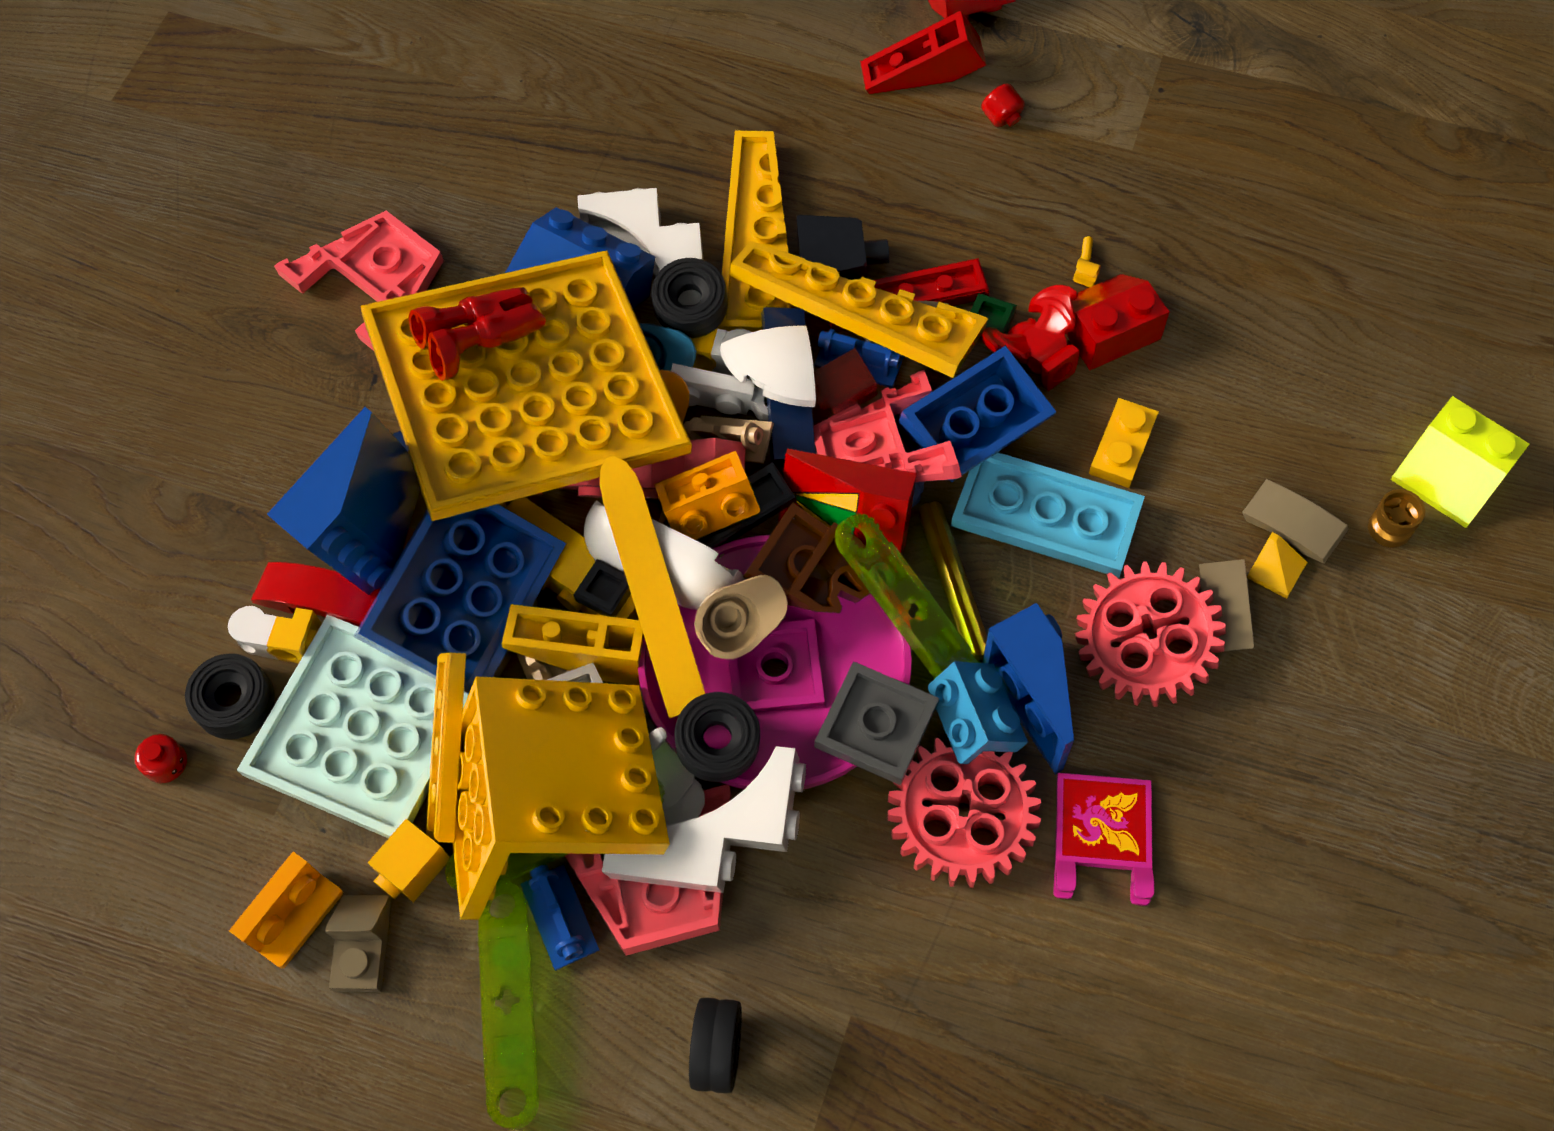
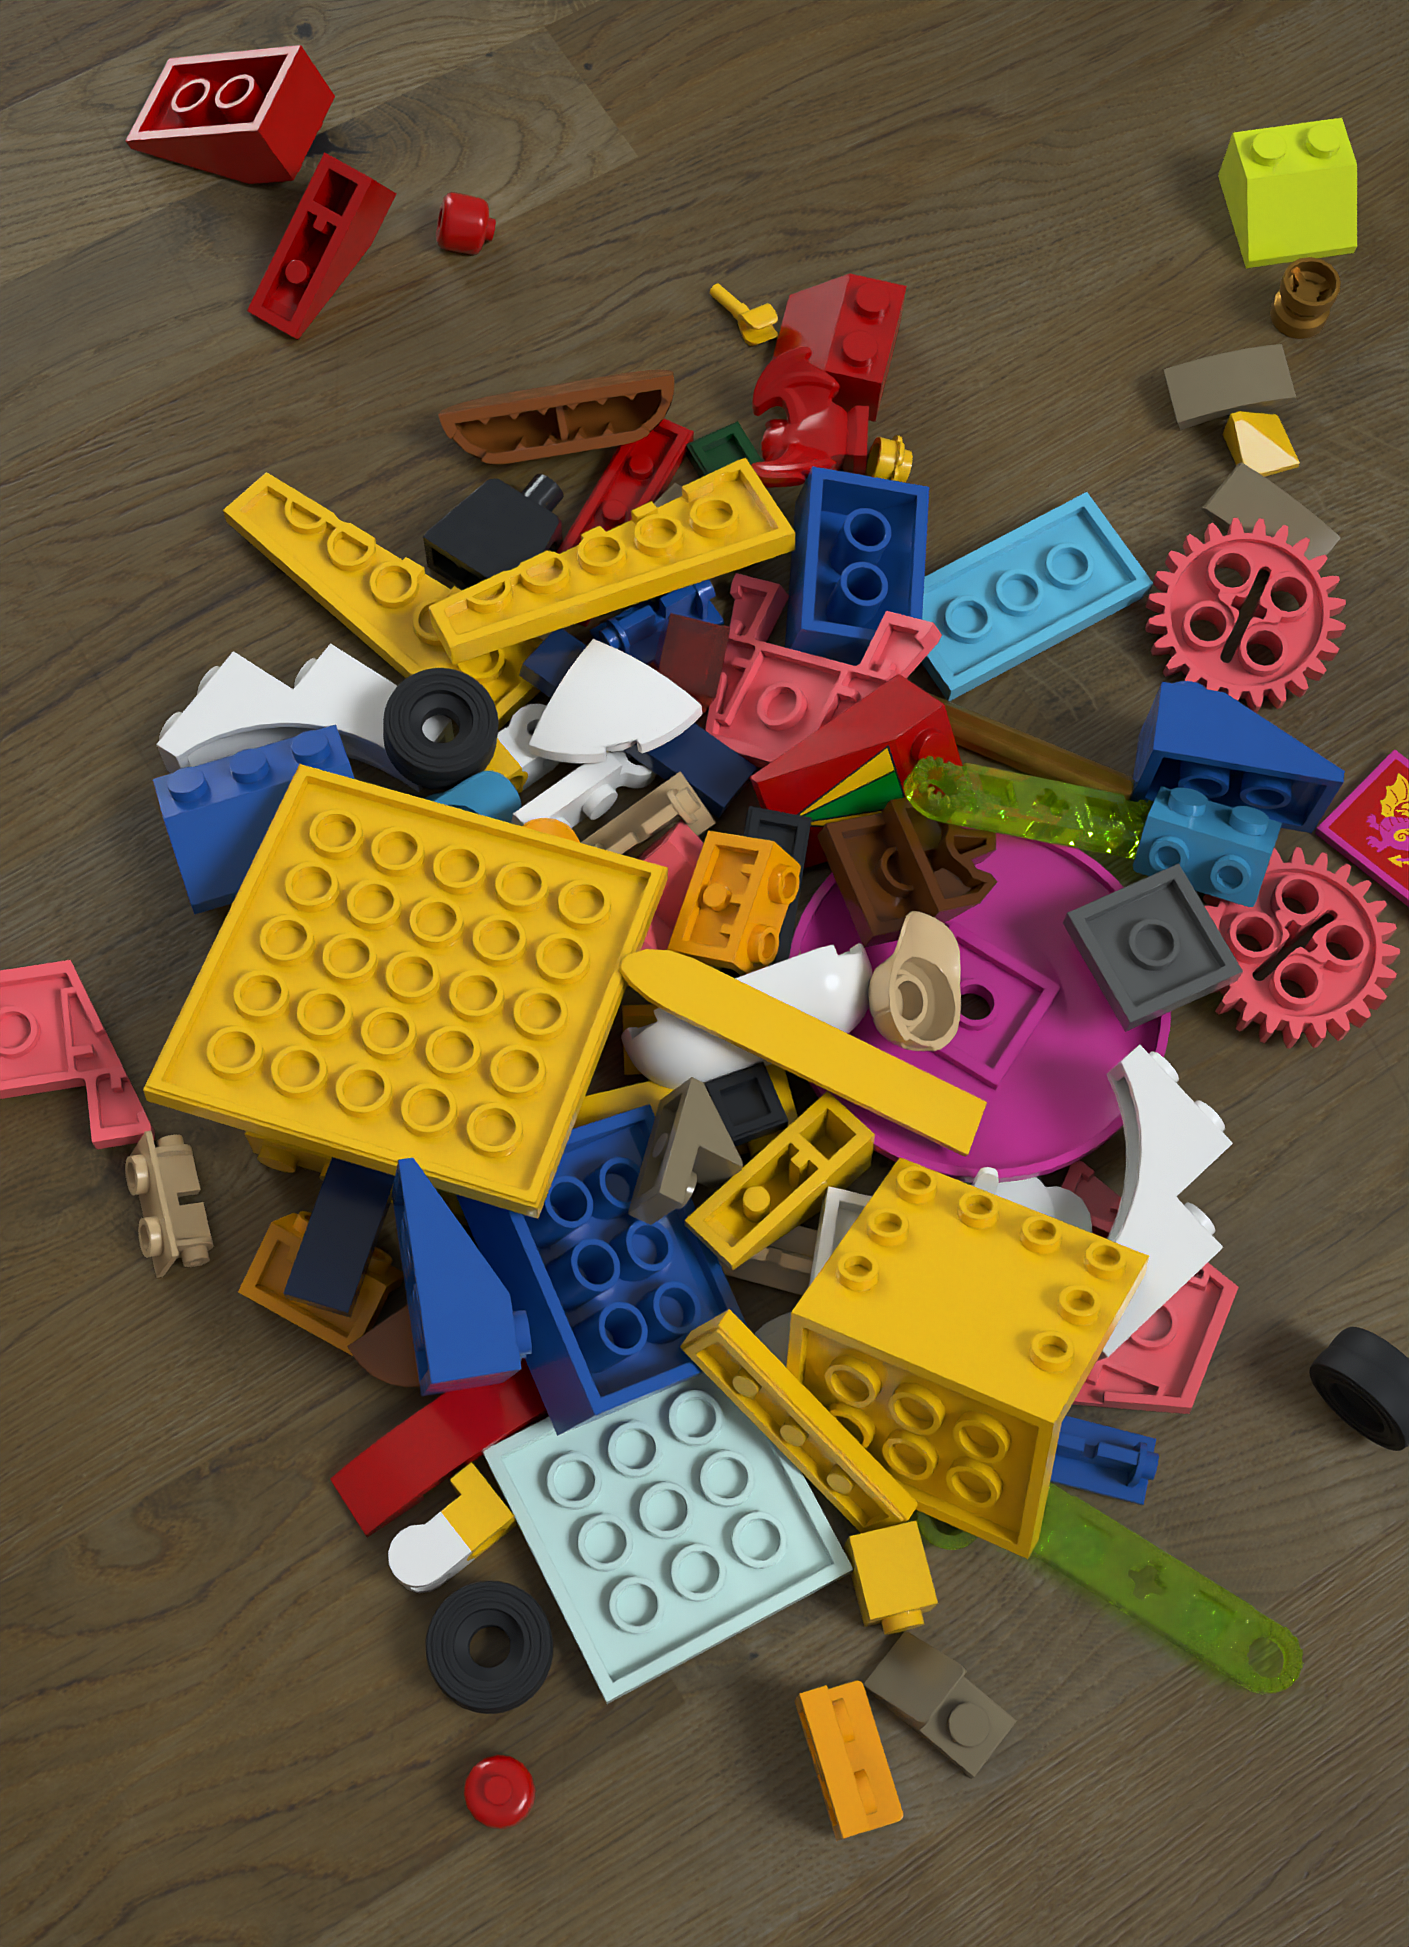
camera: 60 degrees left, 5 degrees up
(341, 396) = (166, 1227): none -> tan hinge
(488, 323) = (302, 951): red piece -> none
(553, 570) = (683, 1148): none -> dark tan slope
(713, 710) = (1065, 1089): black tyre -> none
(929, 224) = (561, 417): none -> dark orange brick
(1064, 391) = (889, 459): none -> yellow plate
(1123, 442) = (996, 461): yellow plate -> none

